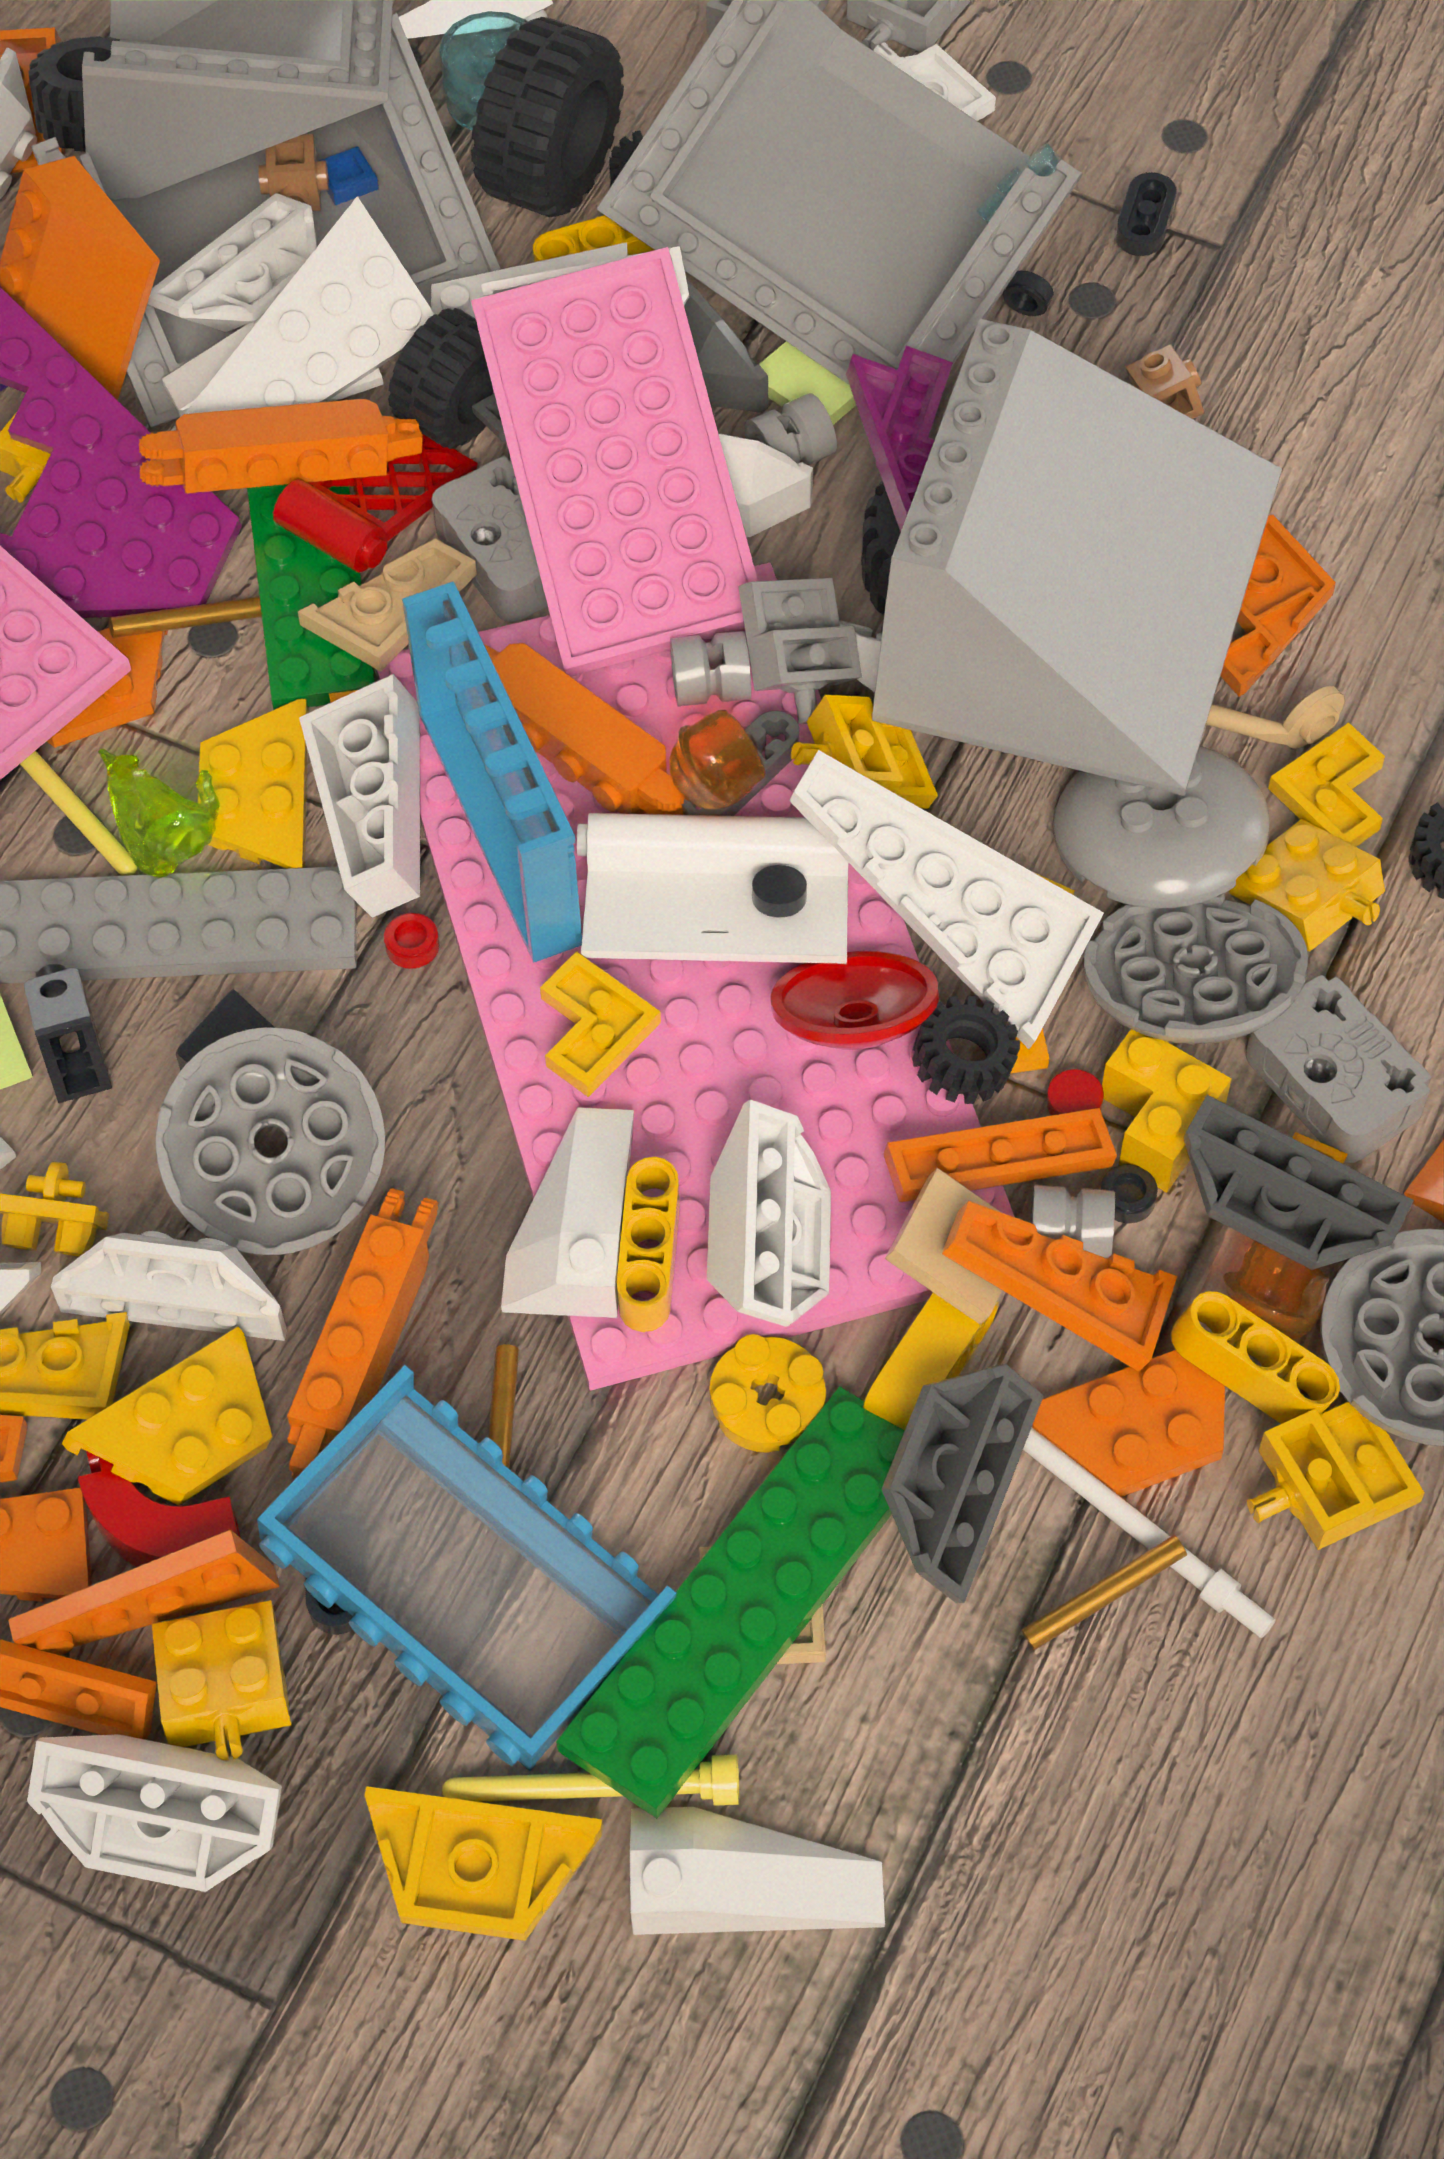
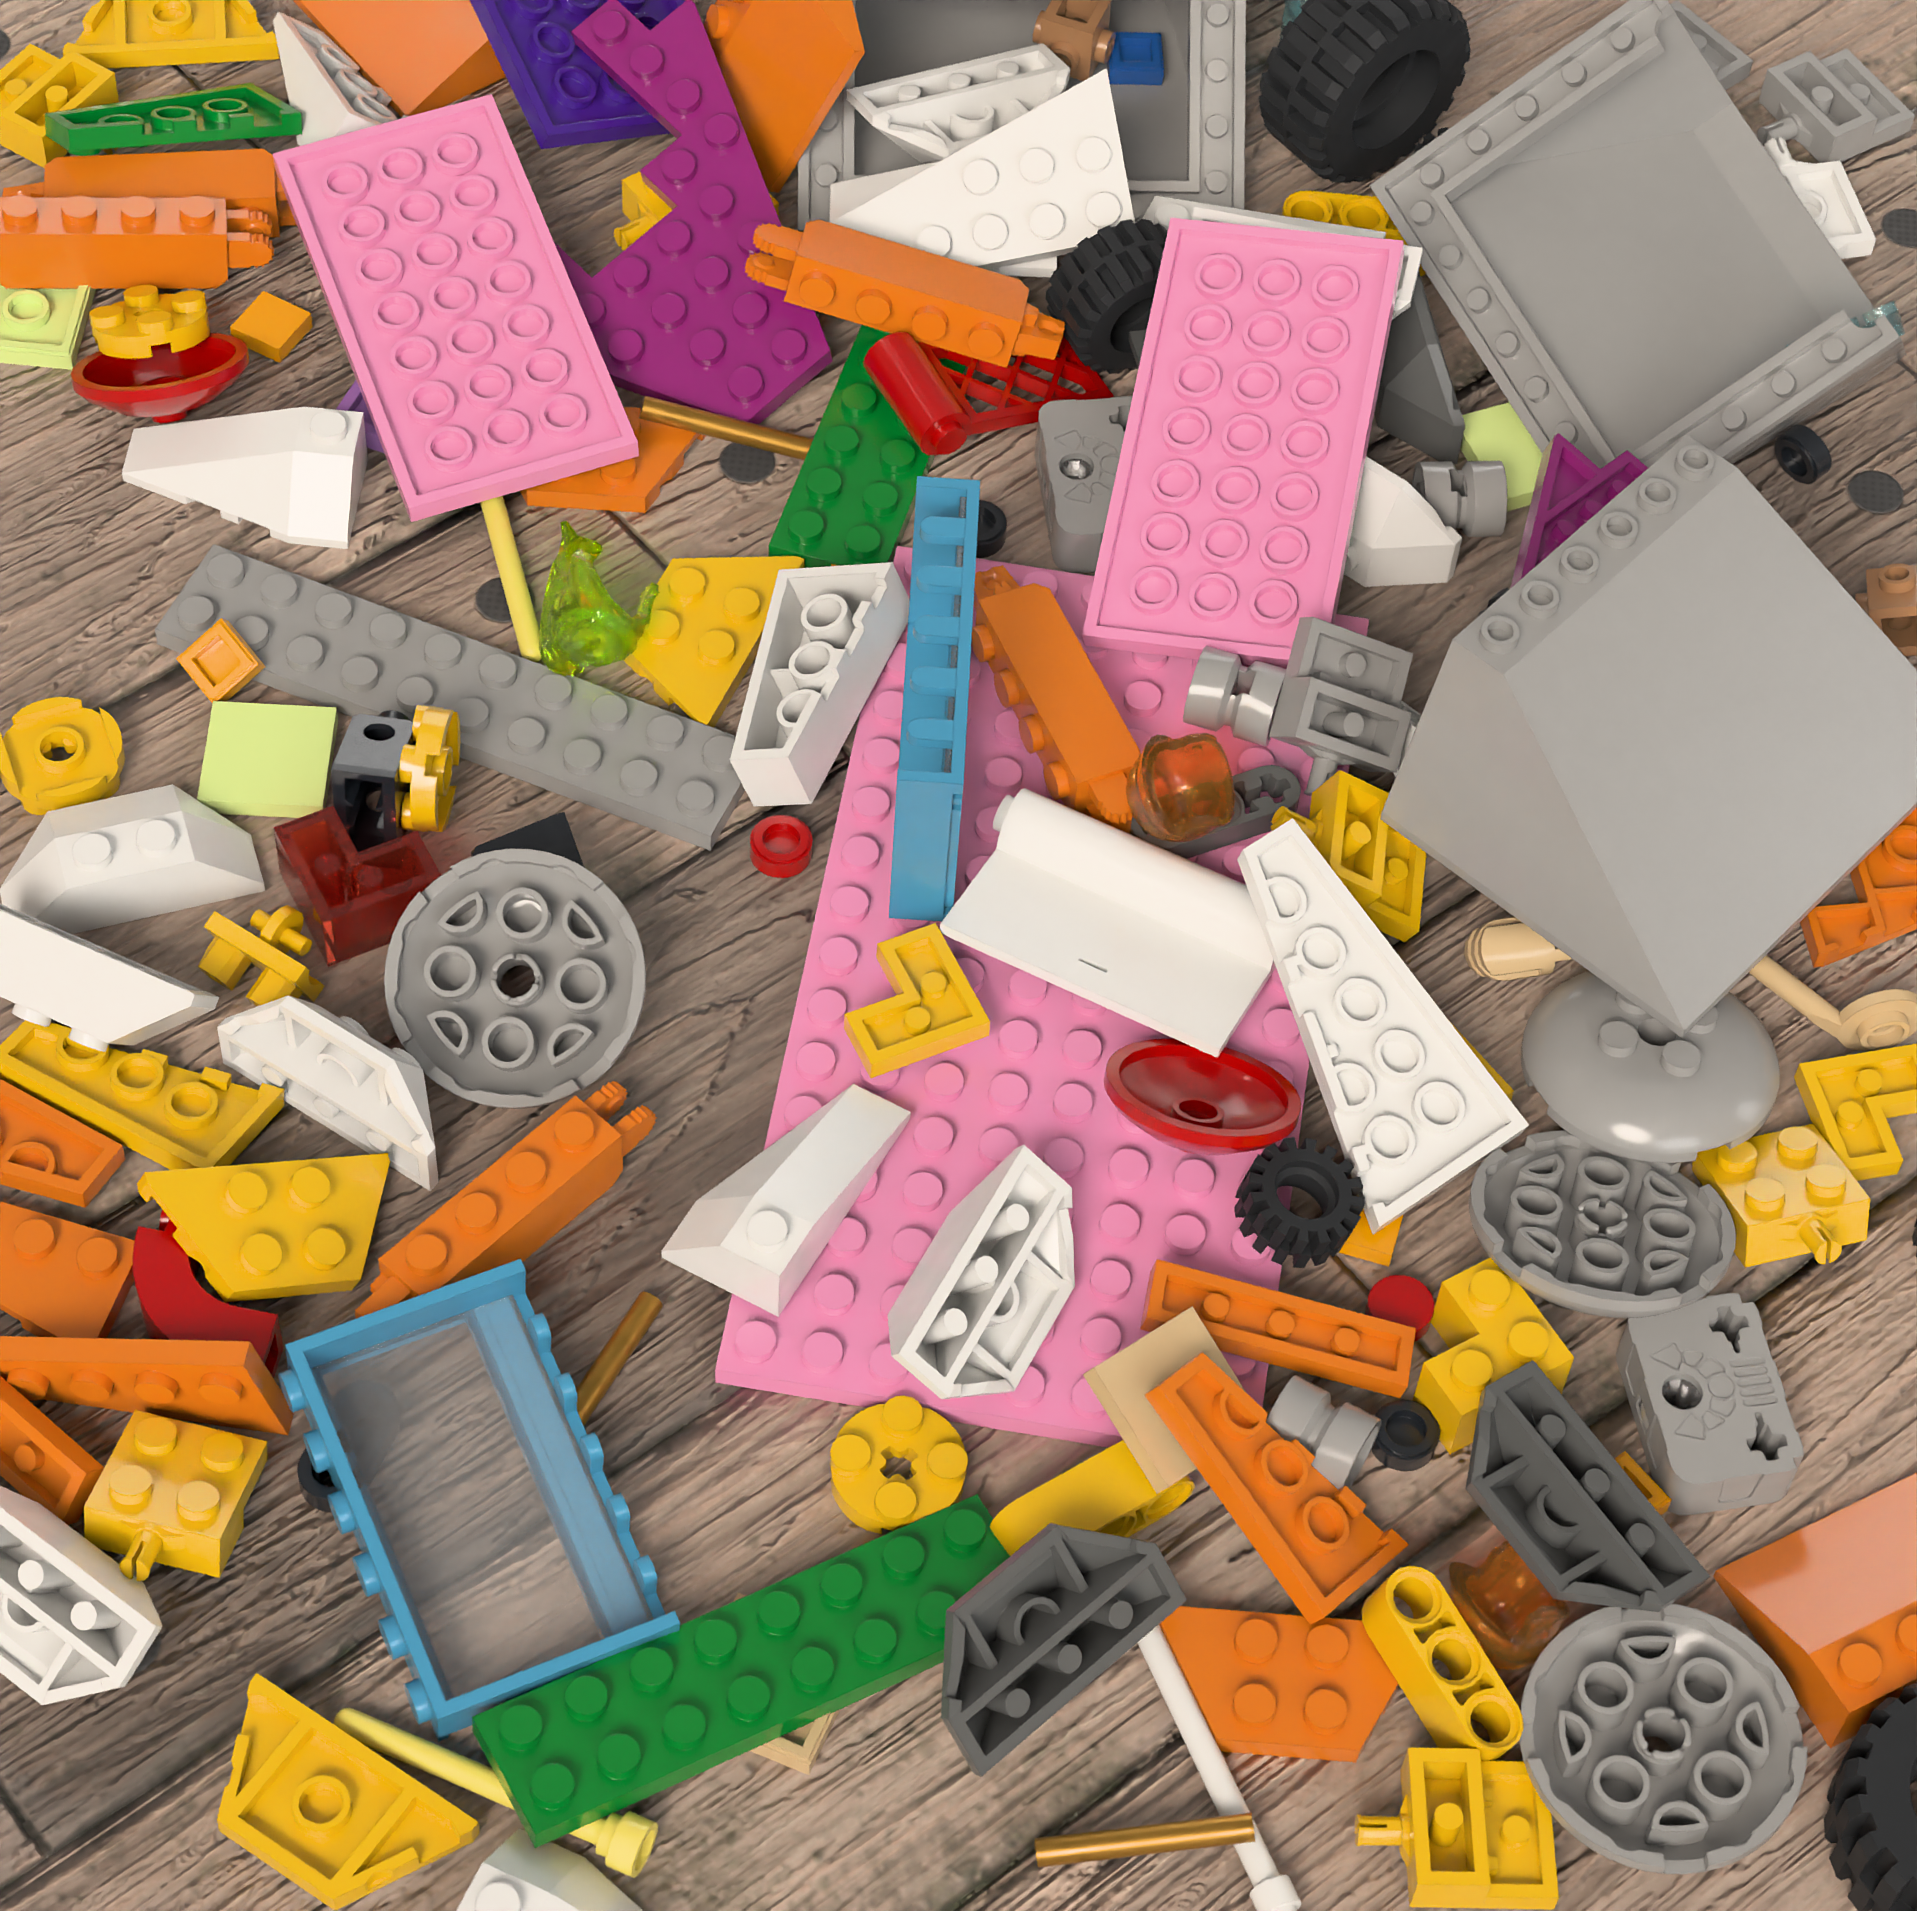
camera: 20 degrees right, 5 degrees down
(93, 1133) = (345, 894): none -> clear red brick
(105, 1000) = (429, 769): none -> yellow plate
(371, 617) = (888, 496): tan wing -> none
(654, 1267) = (842, 1279): yellow beam -> none
(779, 891) = (1184, 952): black tile -> none
(1013, 781) = (1510, 951): none -> tan arm

